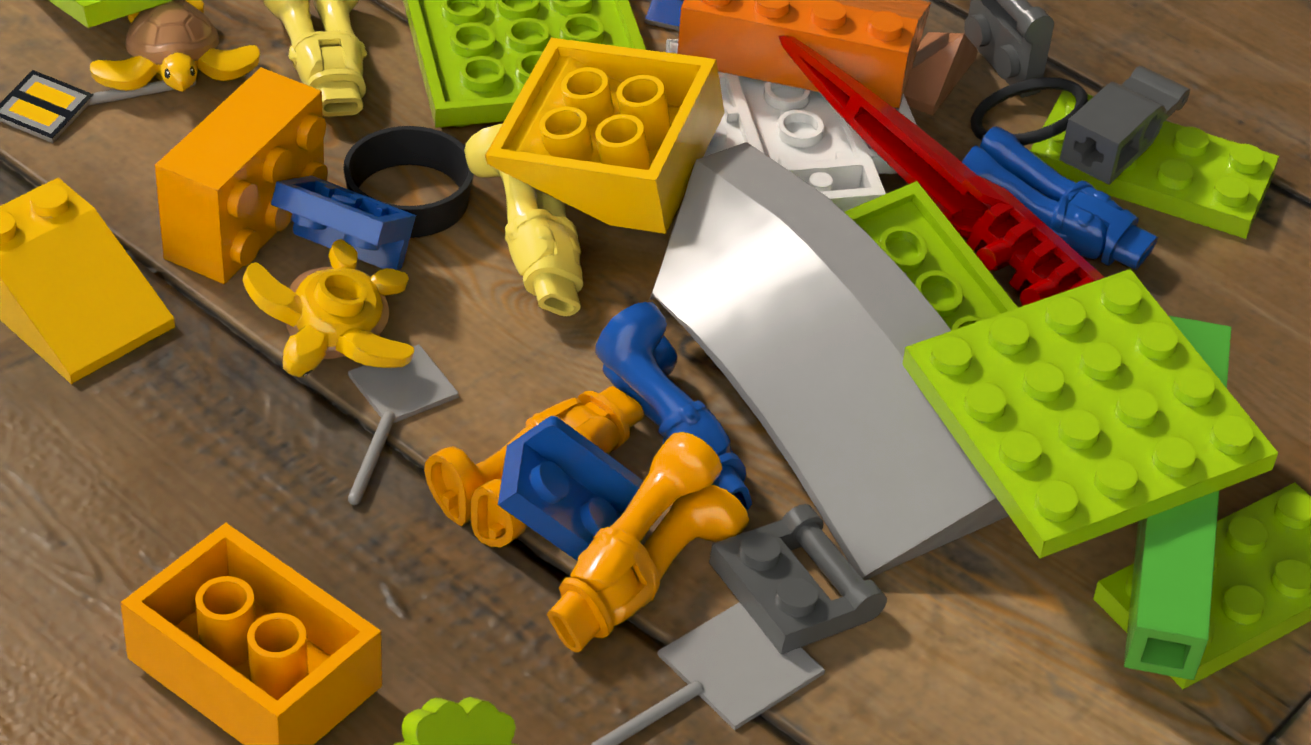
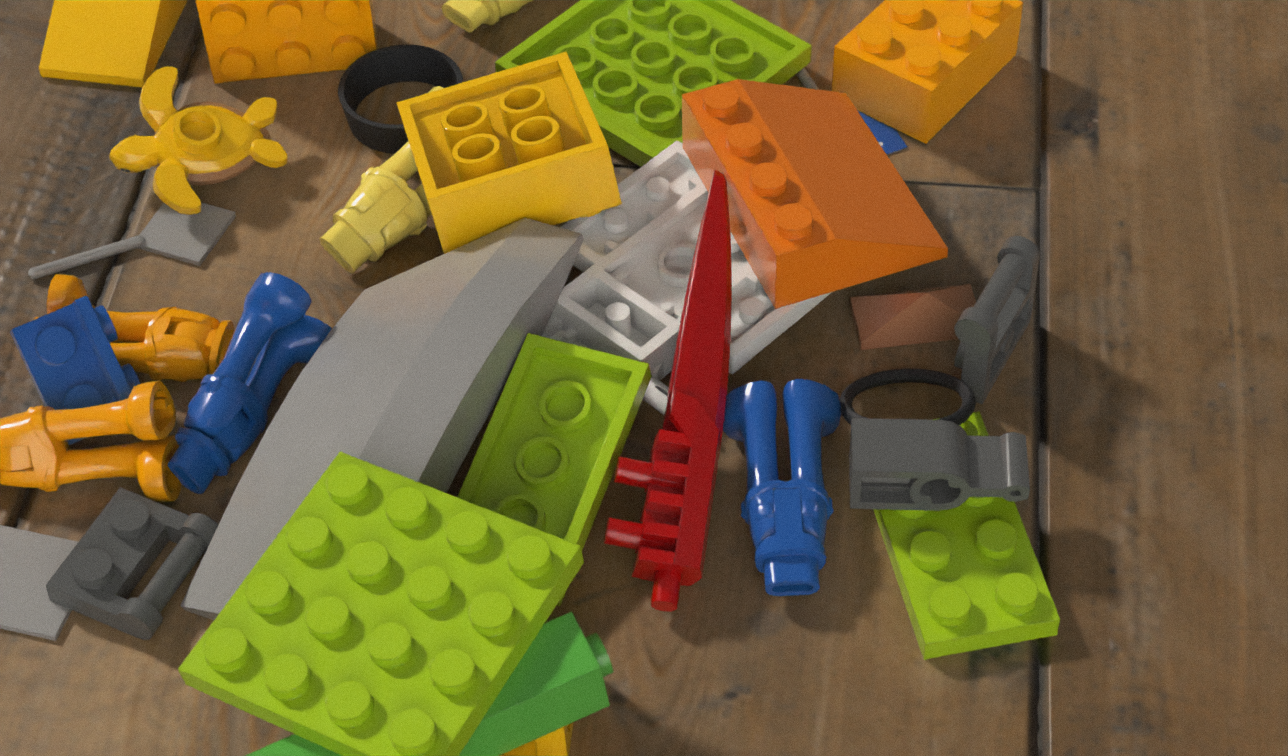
camera: 60 degrees right, 5 degrees up
(331, 213) = (300, 85): blue bracket -> none

